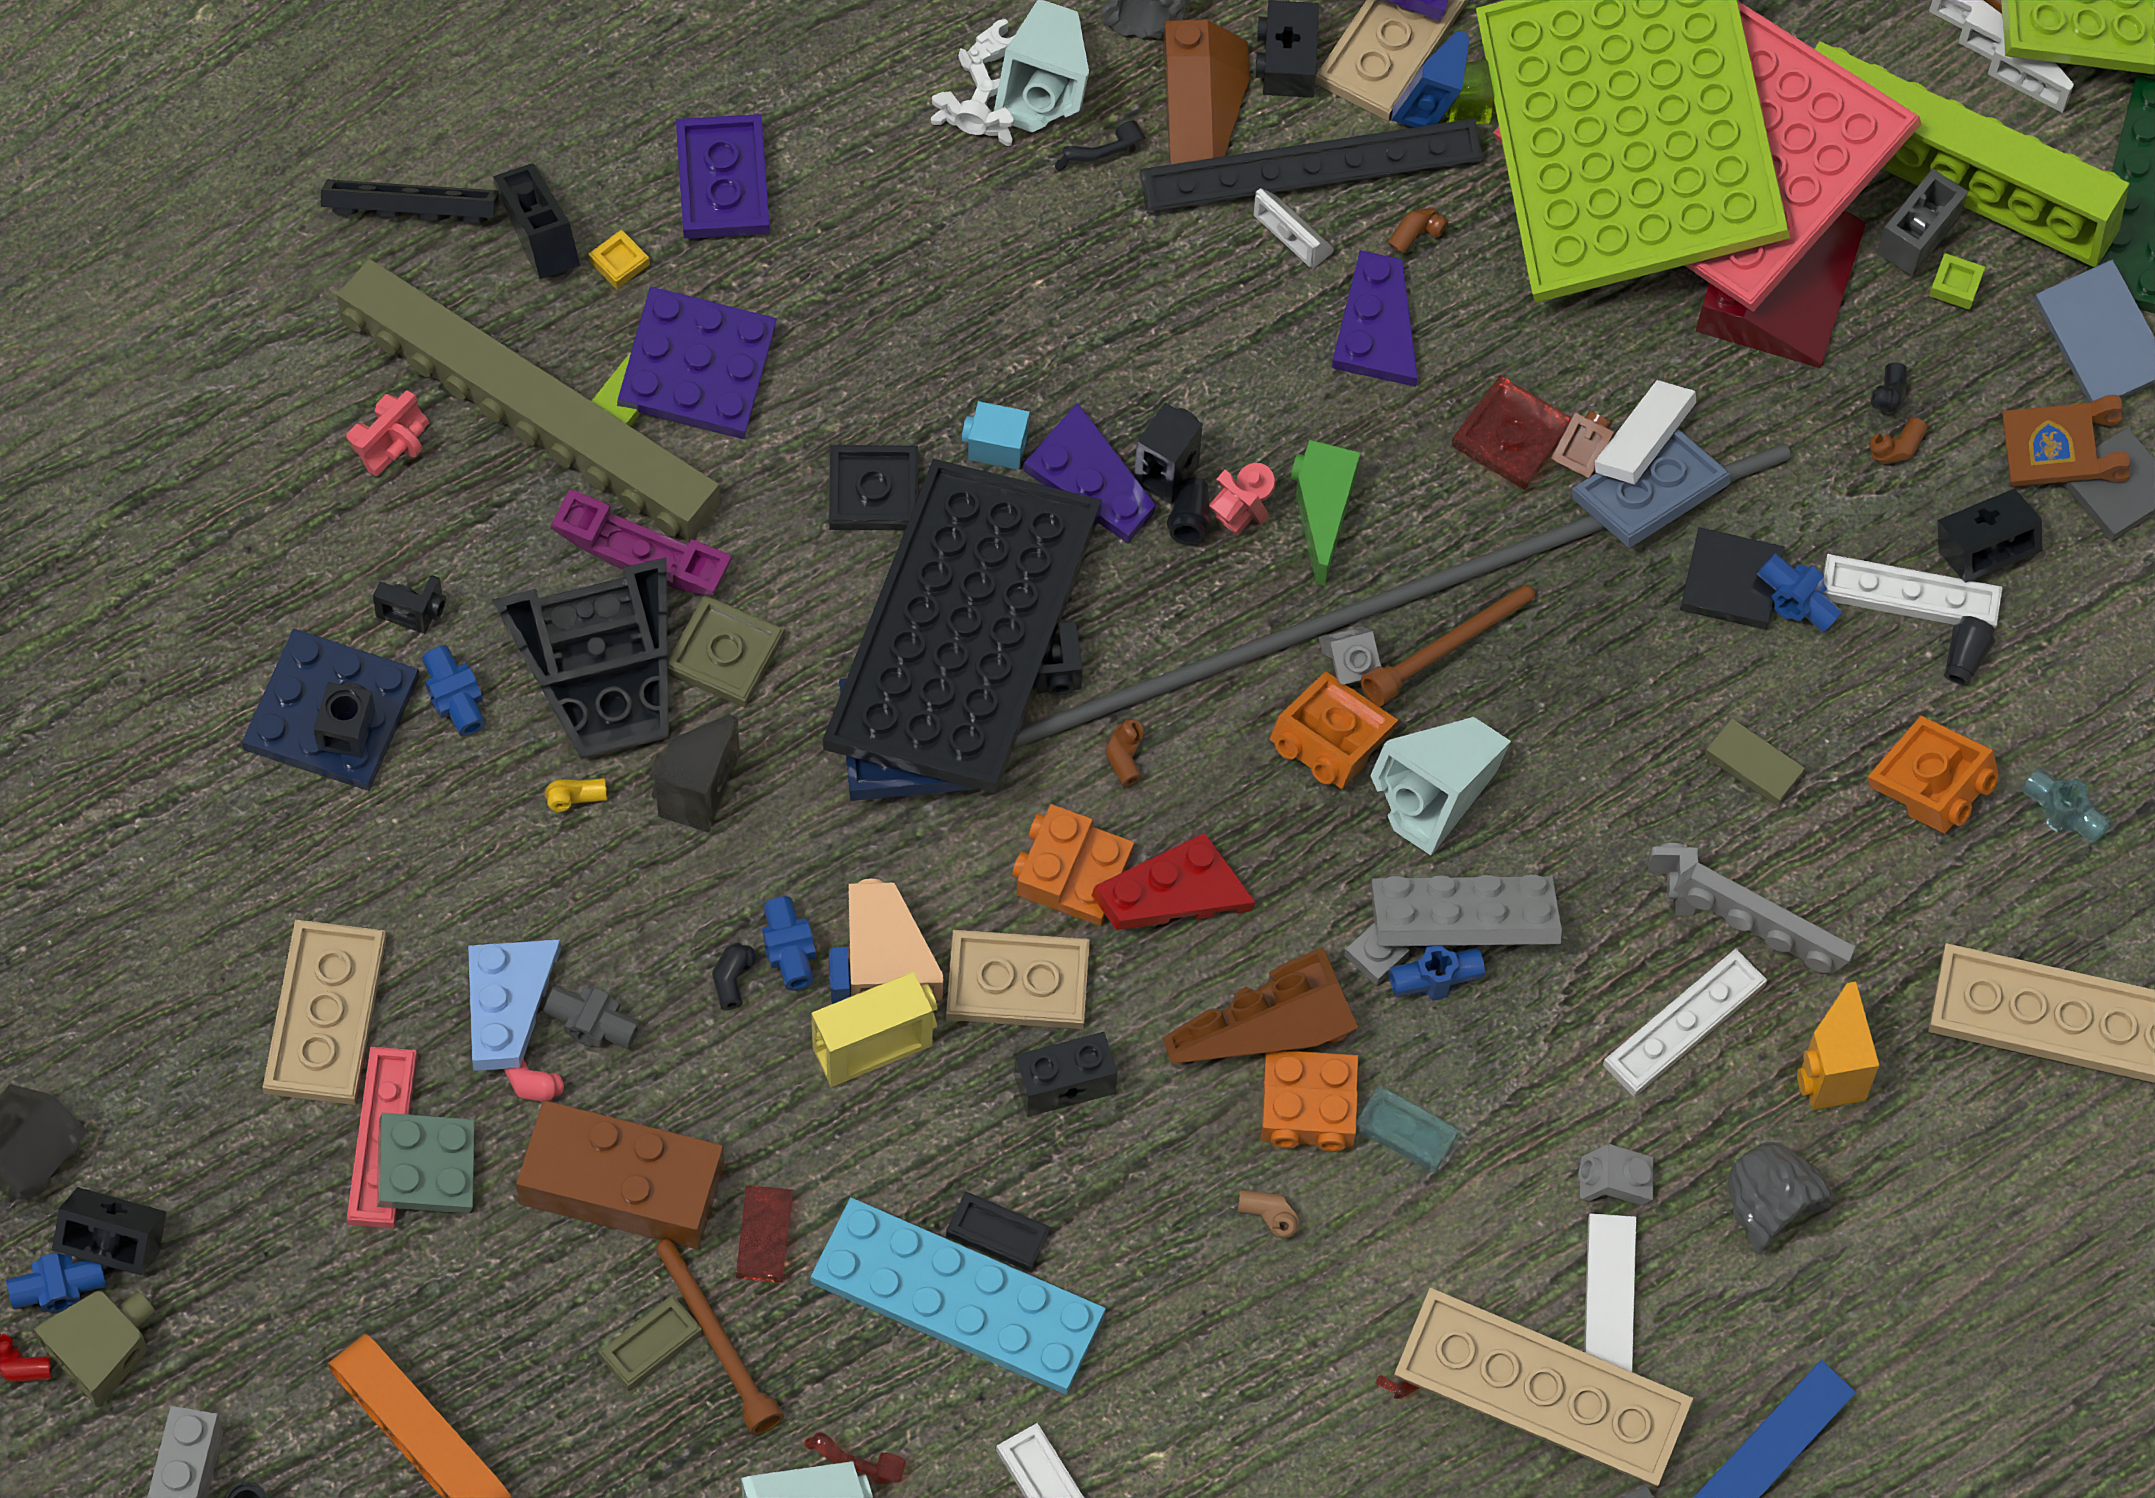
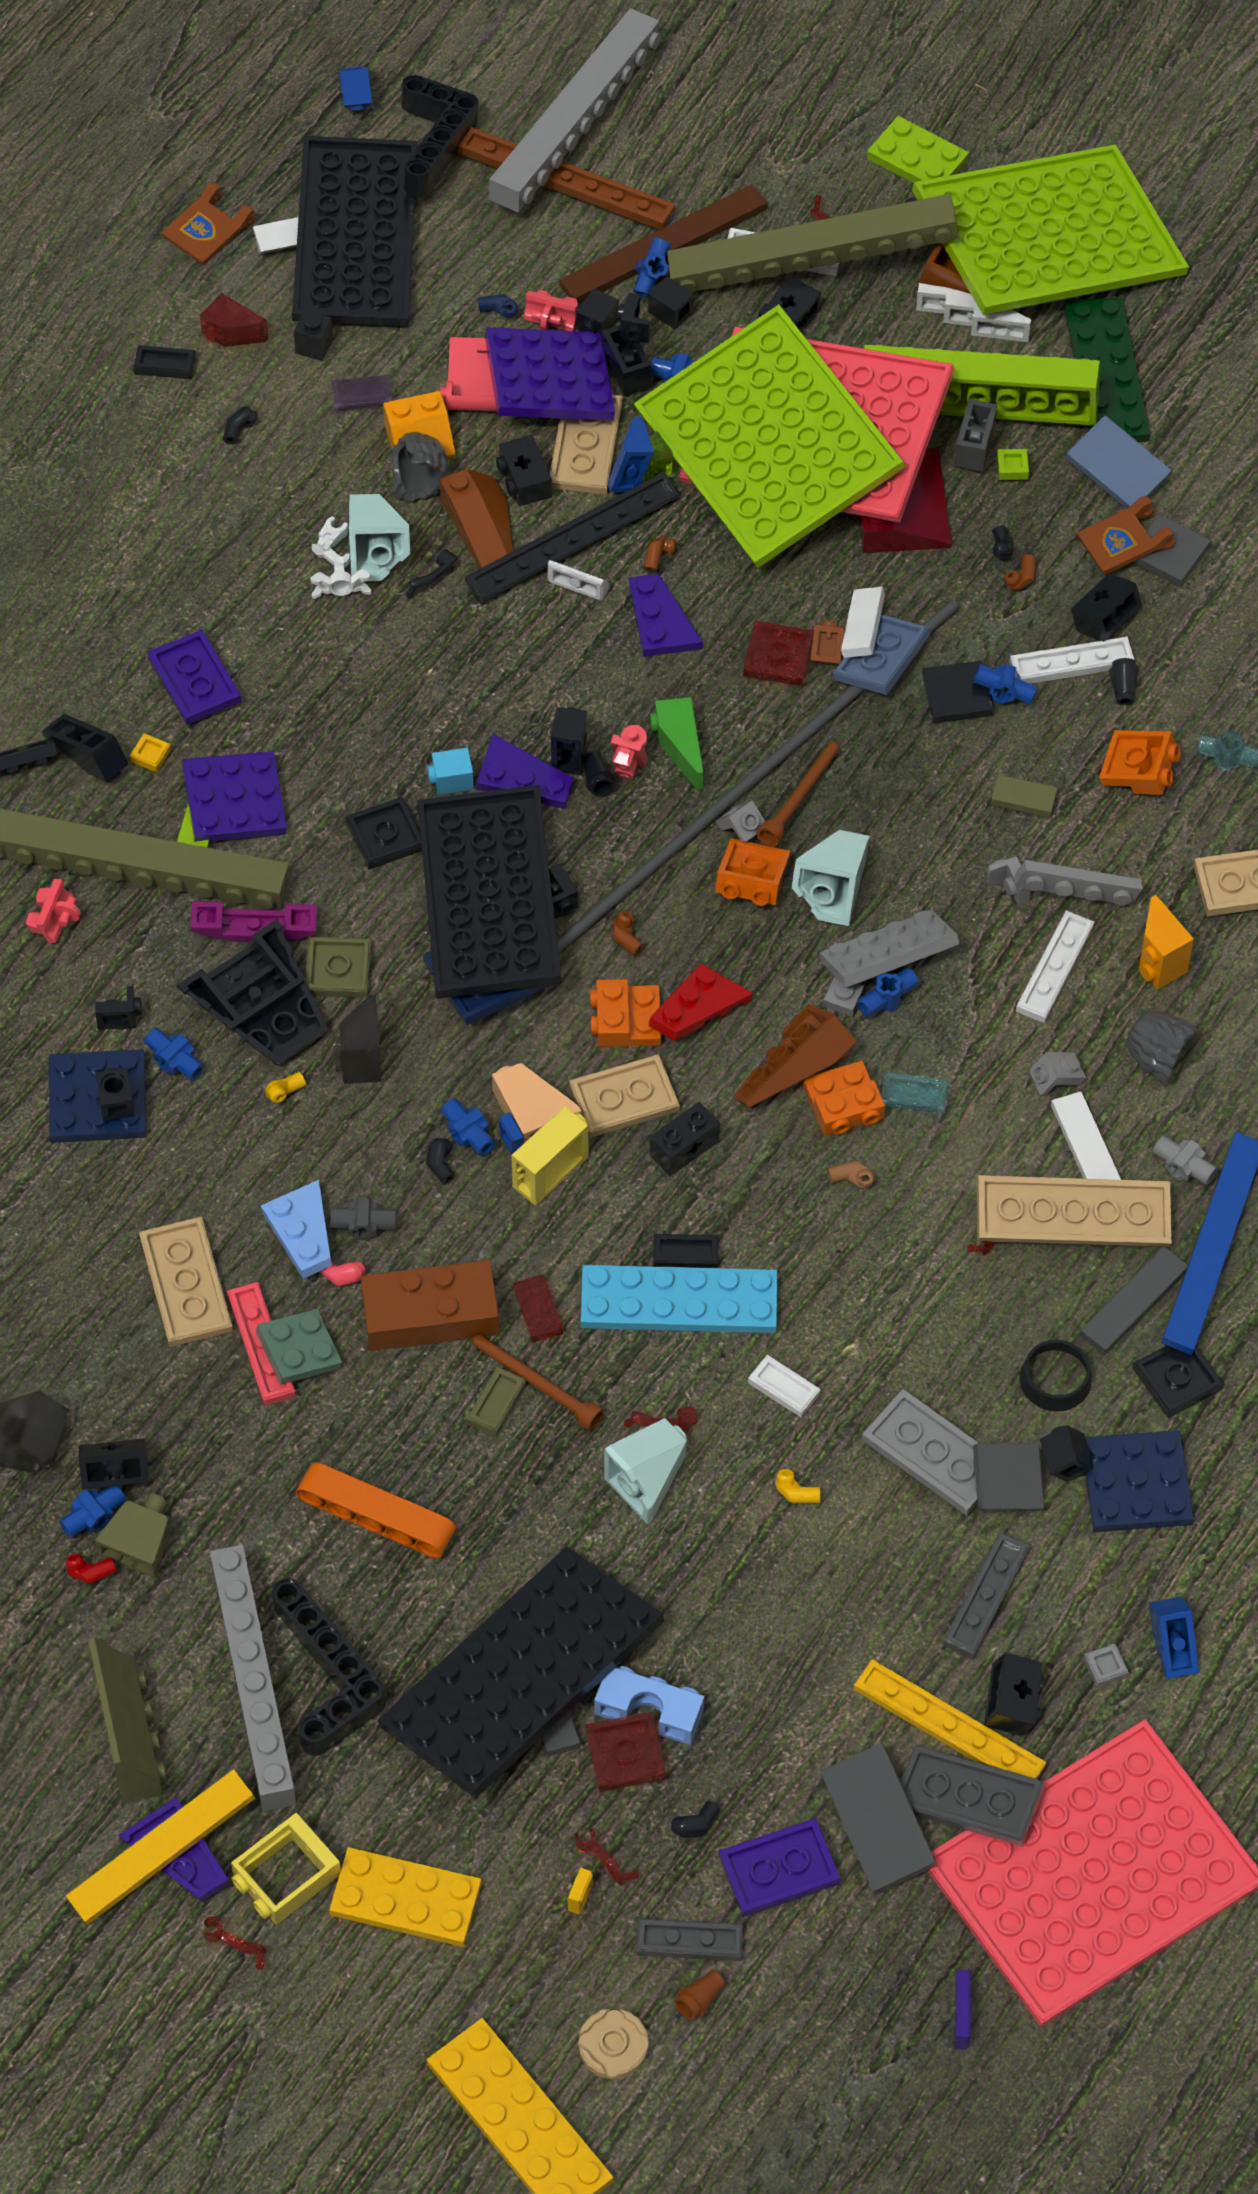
camera: 20 degrees left, 5 degrees down
(1733, 1373) = (1185, 1160): none -> light grey axle

